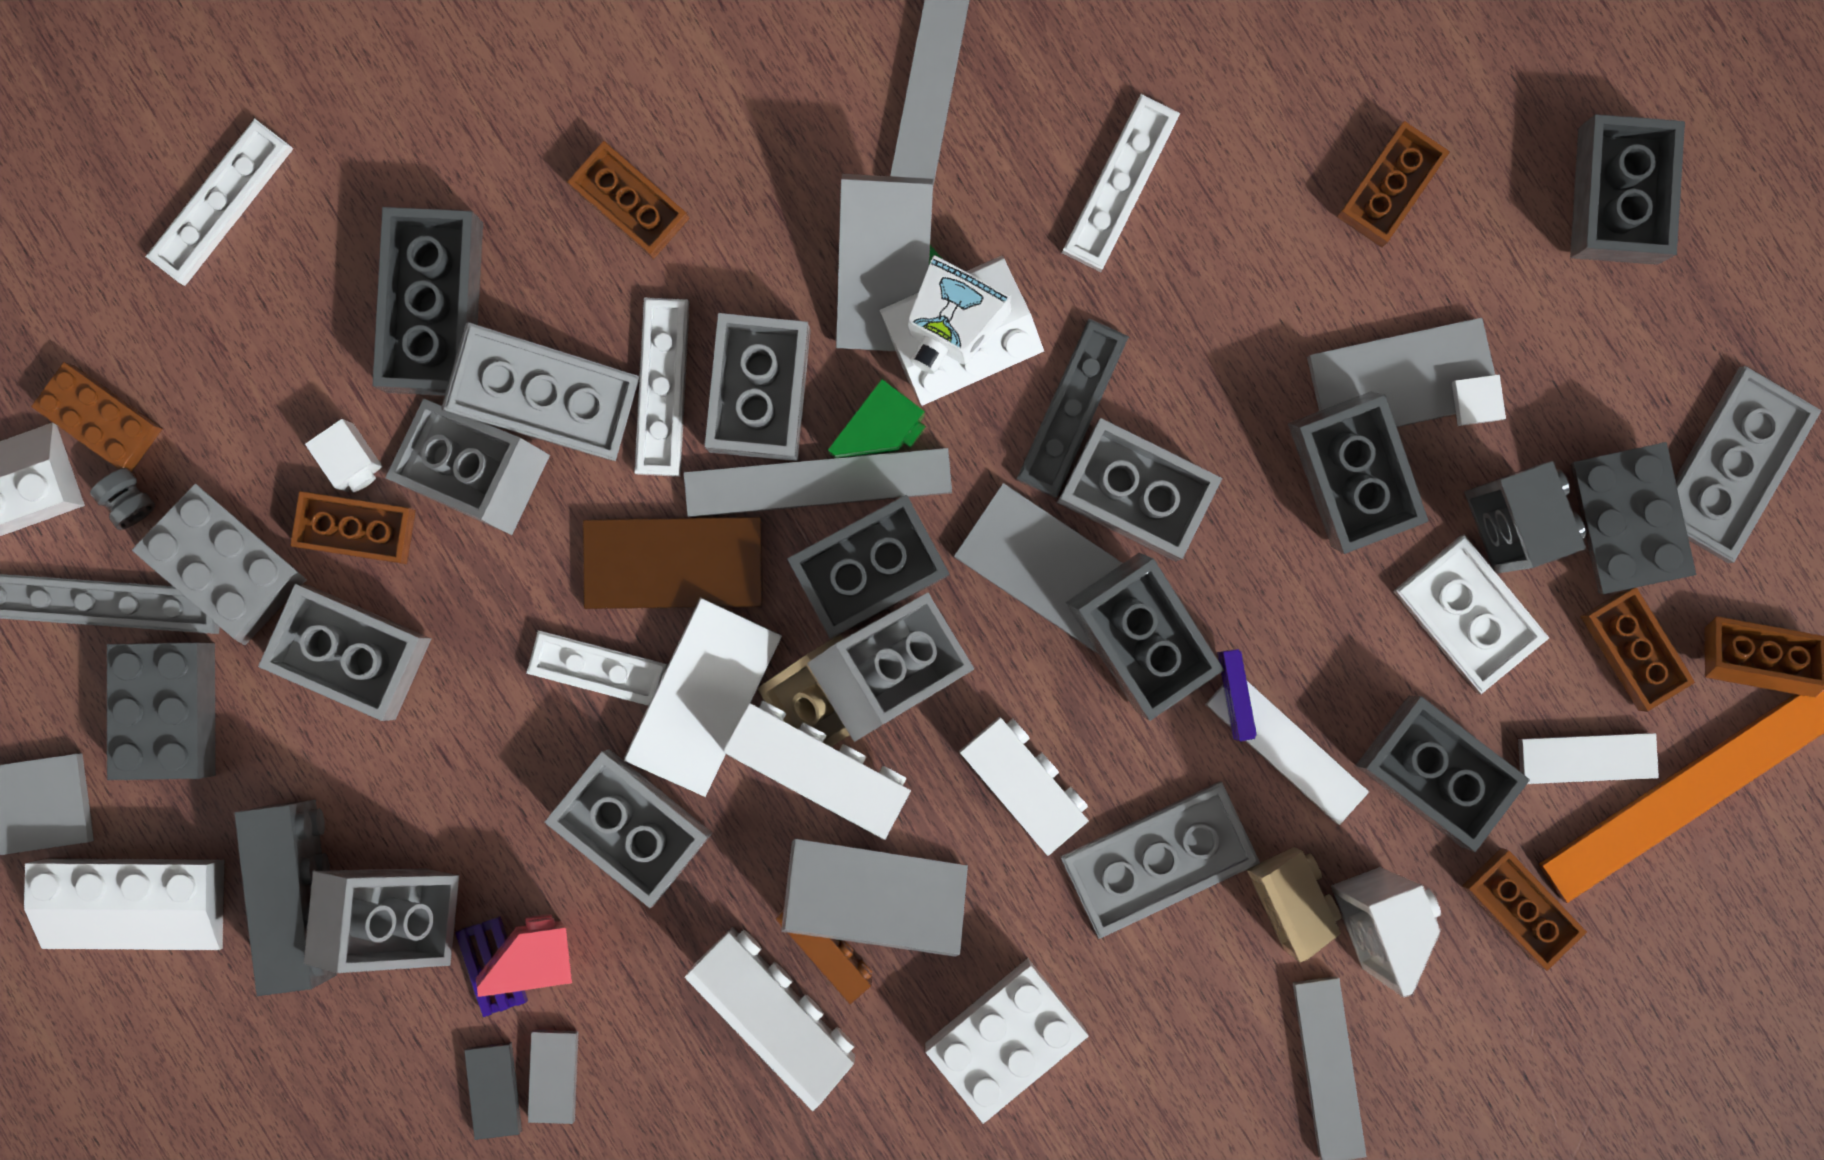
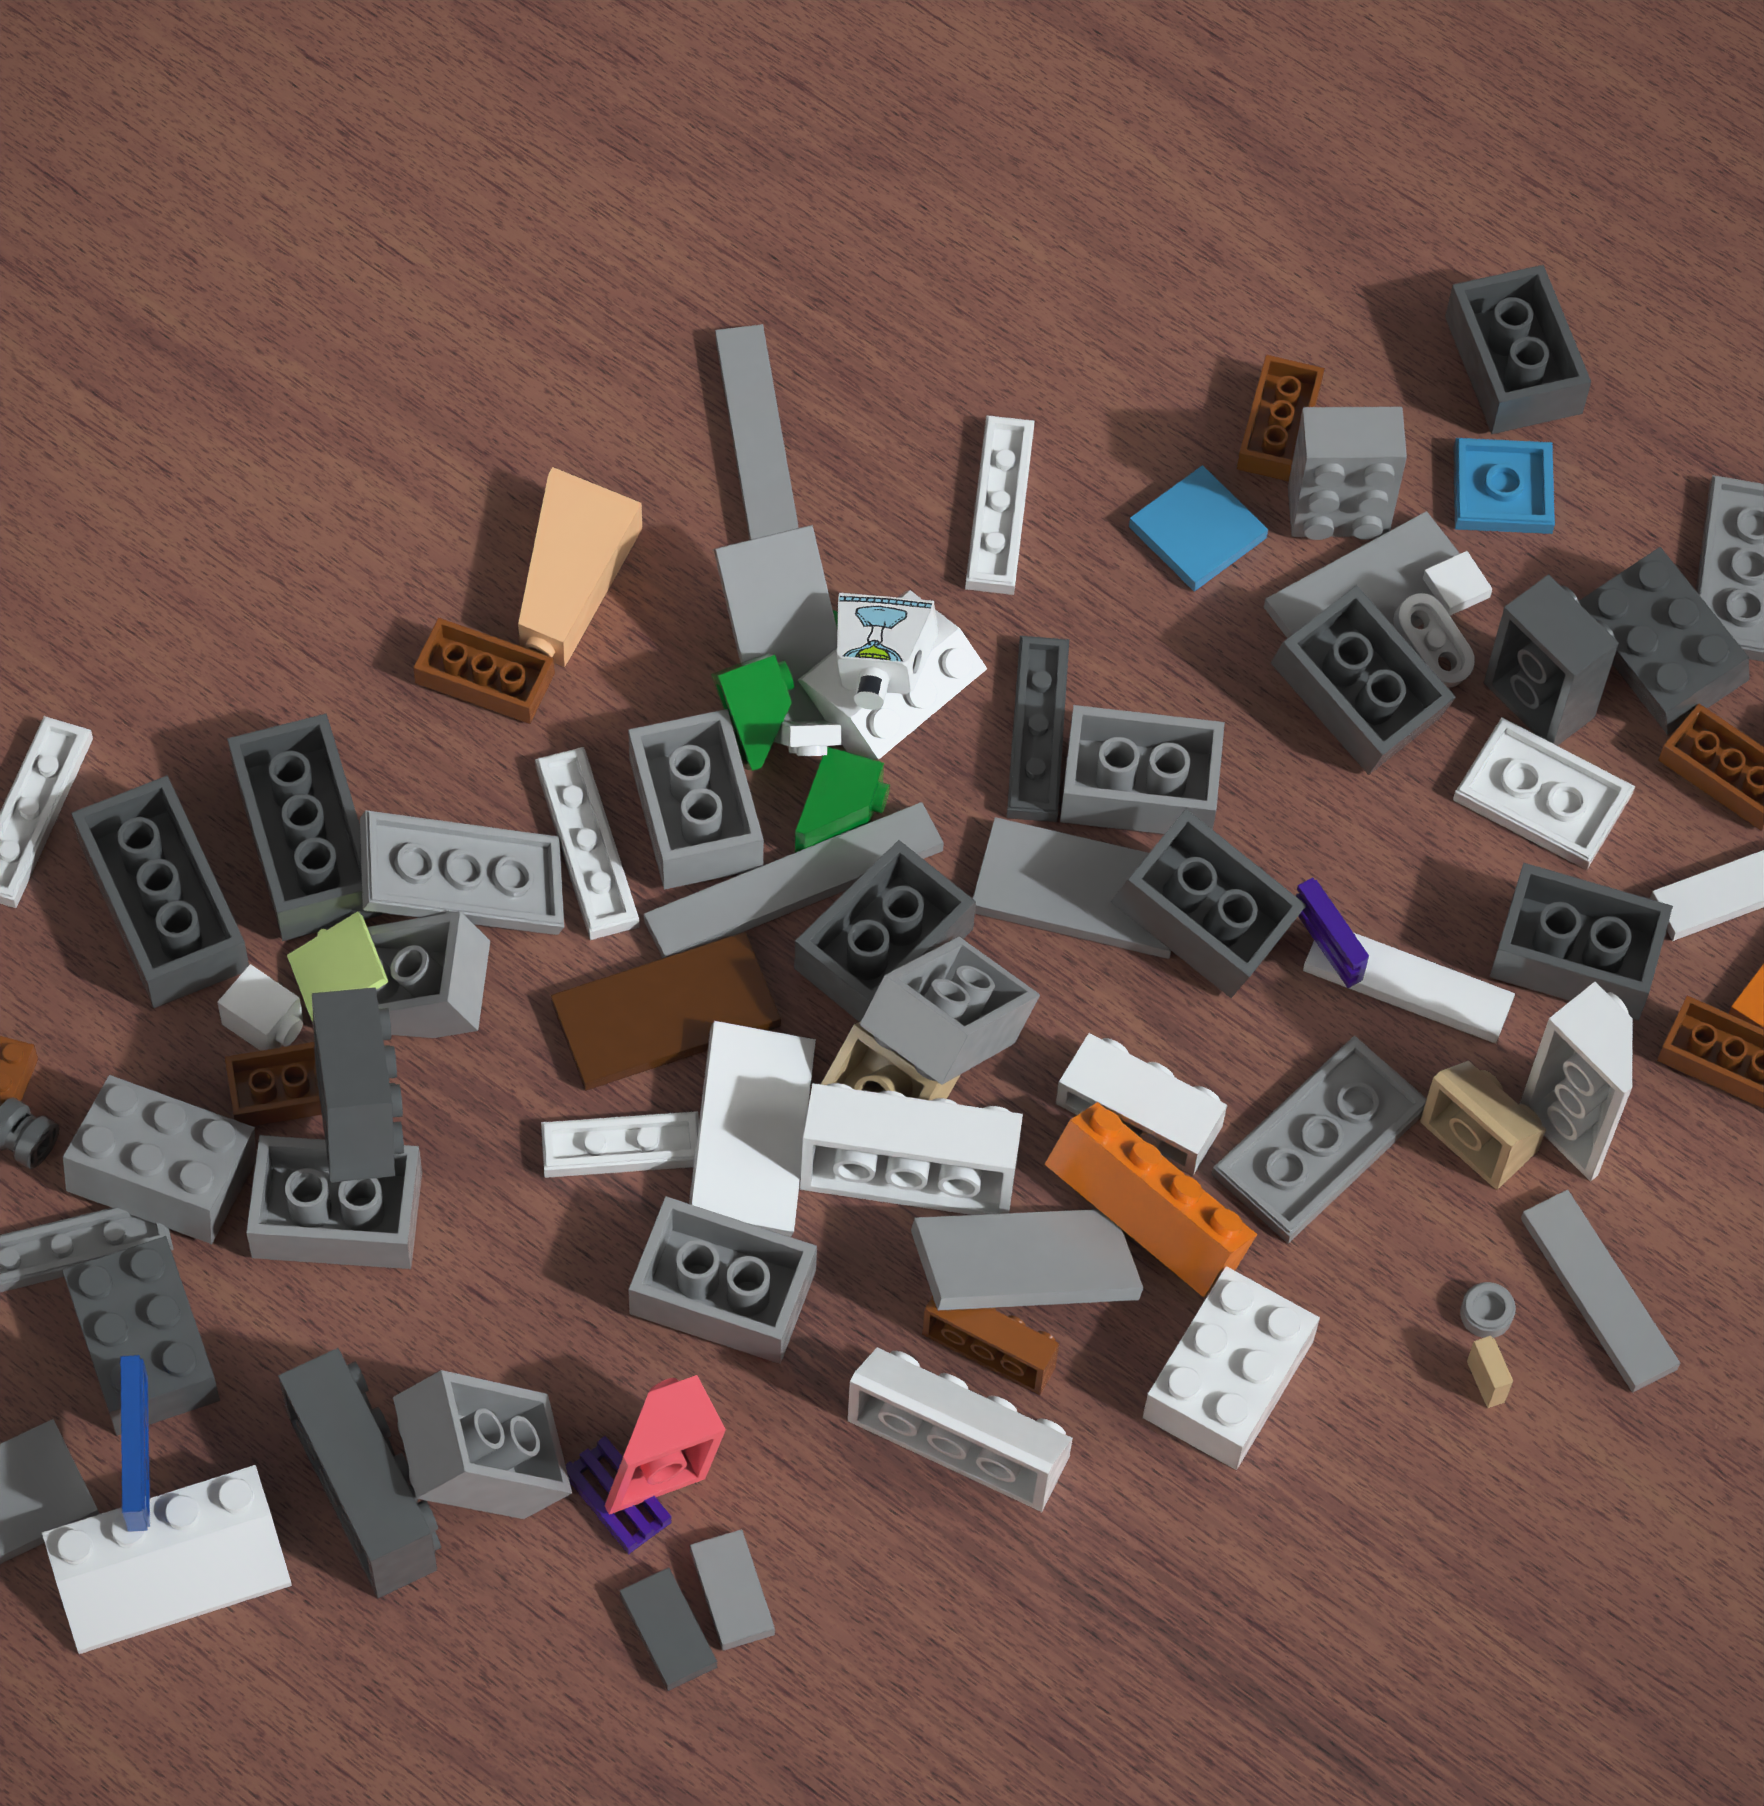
camera: 25 degrees left, 25 degrees down
(106, 829) = (135, 1443): none -> blue tile
(292, 322) = (160, 891): none -> dark grey brick
(373, 579) = (355, 1084): none -> dark grey brick
(416, 440) = (337, 960): none -> yellowish green piece
(736, 123) = (574, 560): none -> light nougat slope
(834, 320) = (756, 704): none -> green slope
(868, 366) = (809, 737): none -> white plate
(997, 877) = (1149, 1198): none -> orange brick
(1210, 1113) = (1489, 1371): none -> tan tile
(1233, 1053) = (1487, 1310): none -> light grey tile
(1280, 264) = (1198, 528): none -> dark azure tile
(1424, 273) = (1346, 472): none -> light grey brick
(1438, 444) = (1437, 638): none -> white plate
(1559, 311) = (1503, 485): none -> dark azure tile

